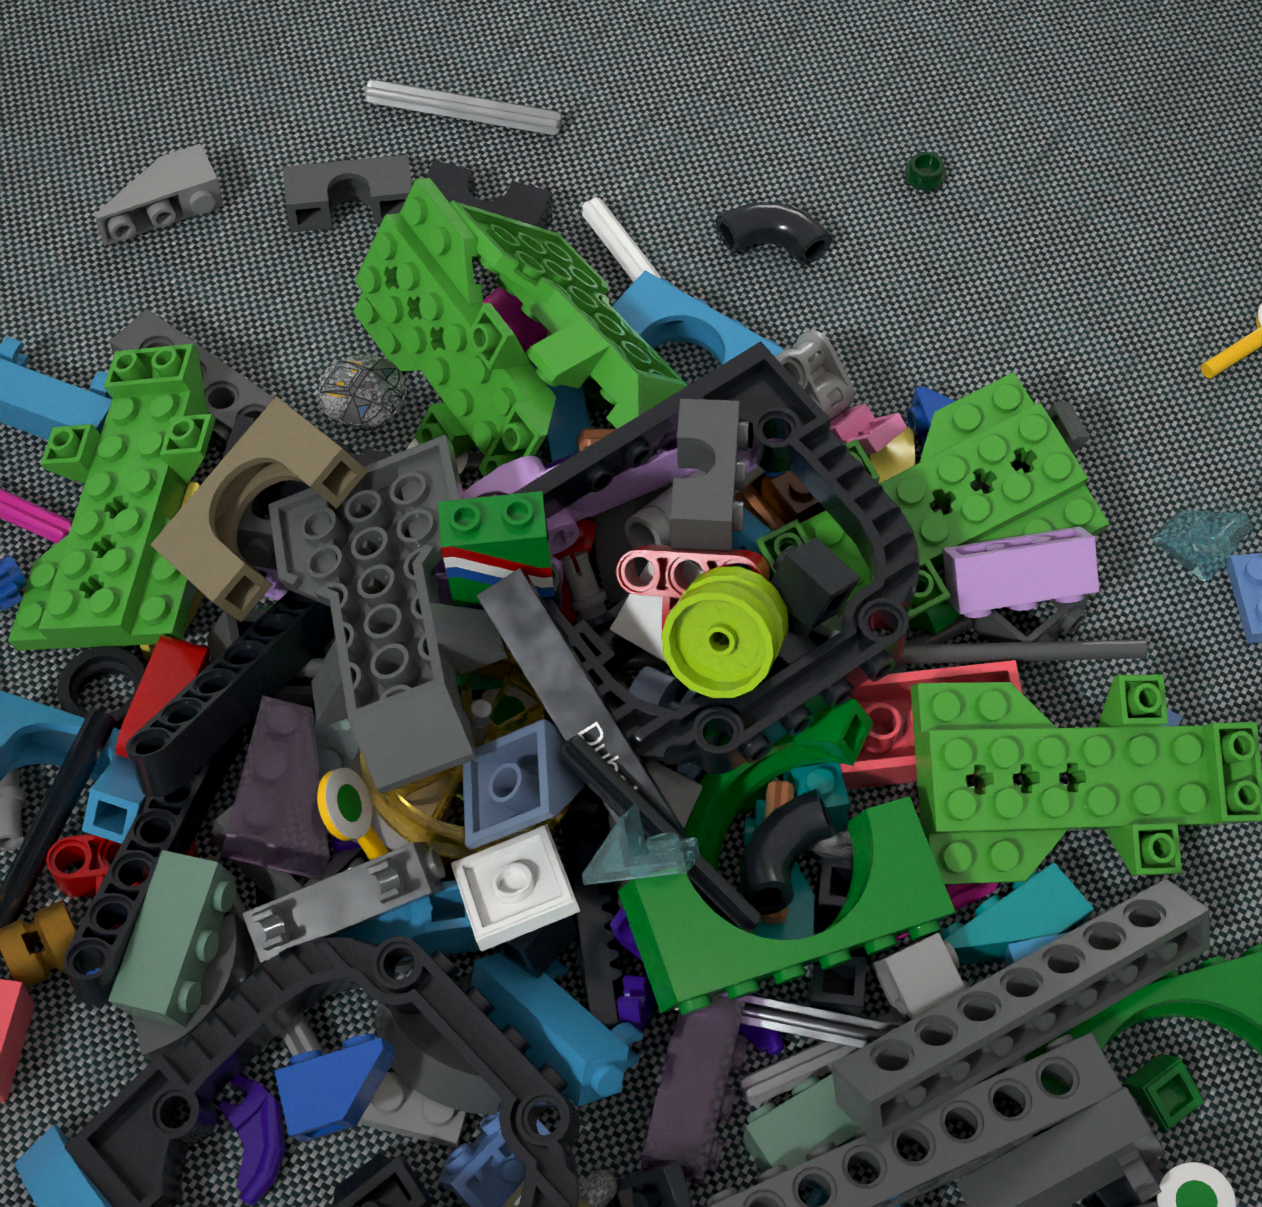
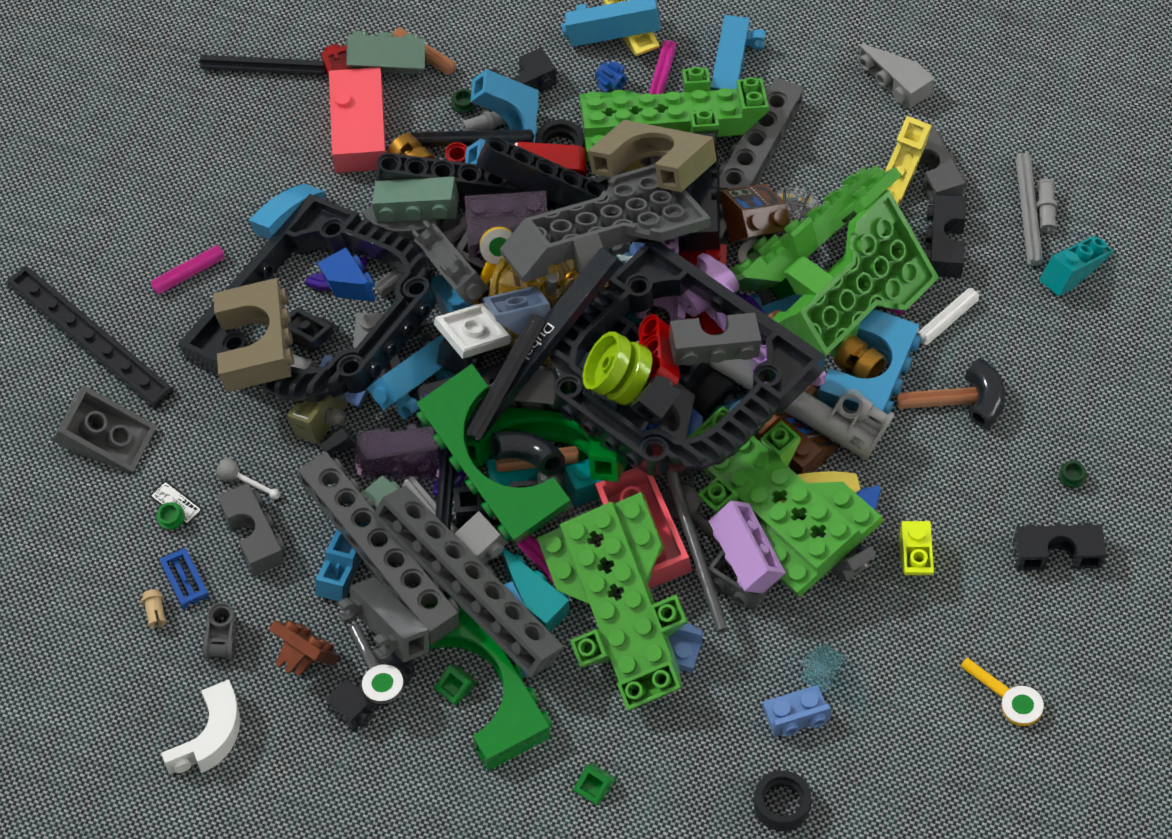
camera: 80 degrees right, 0 degrees up
(329, 209) = (907, 154): none -> light yellow slope
(375, 416) = (753, 212): none -> reddish brown slope
(466, 82) = (1047, 206): none -> light grey pin
(491, 539) = (629, 244): green panel -> none
(583, 78) = (1074, 264): none -> teal slope
(628, 857) = (485, 362): clear light blue slope -> none
(689, 354) = (857, 358): none -> pearl gold wheel
(761, 287) = (937, 398): none -> nougat axle
(871, 432) = (841, 463): bright pink slope -> none
(1041, 238) = (1082, 542): none -> black arch
(1042, 370) = (916, 548): none -> neon yellow slope

